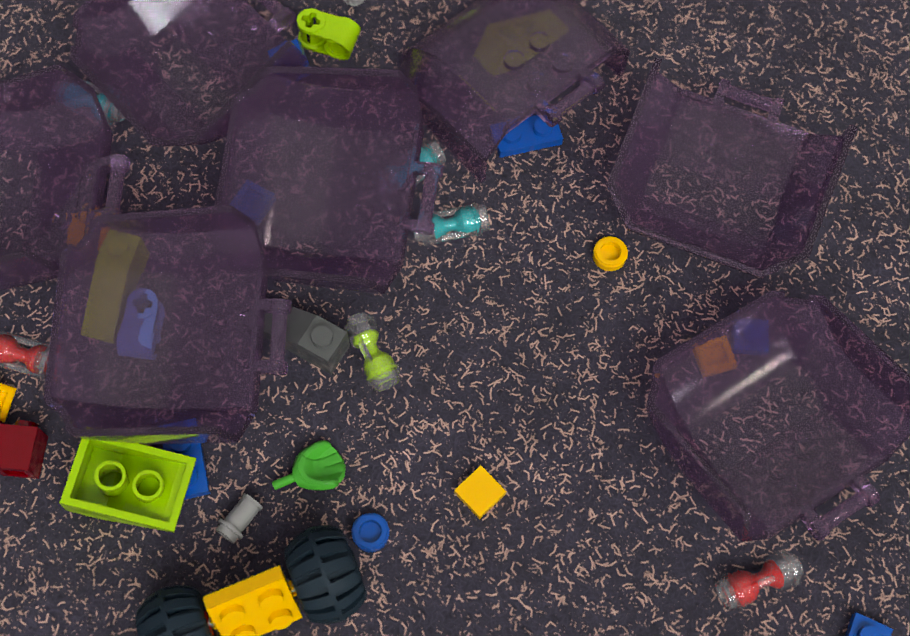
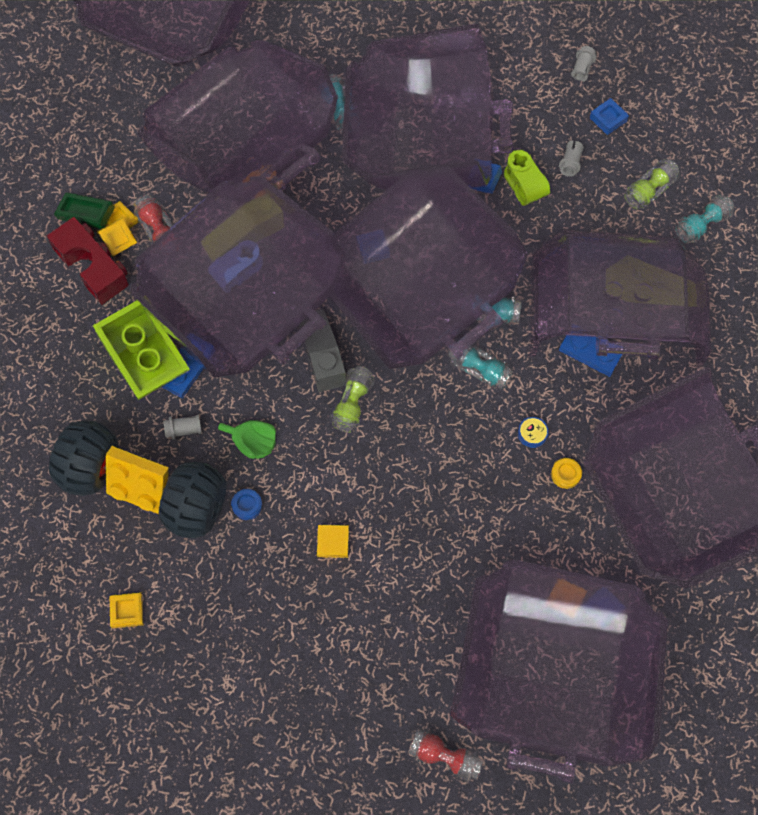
camera: 45 degrees right, 0 degrees up
(549, 243) = (533, 432): none -> light yellow tile

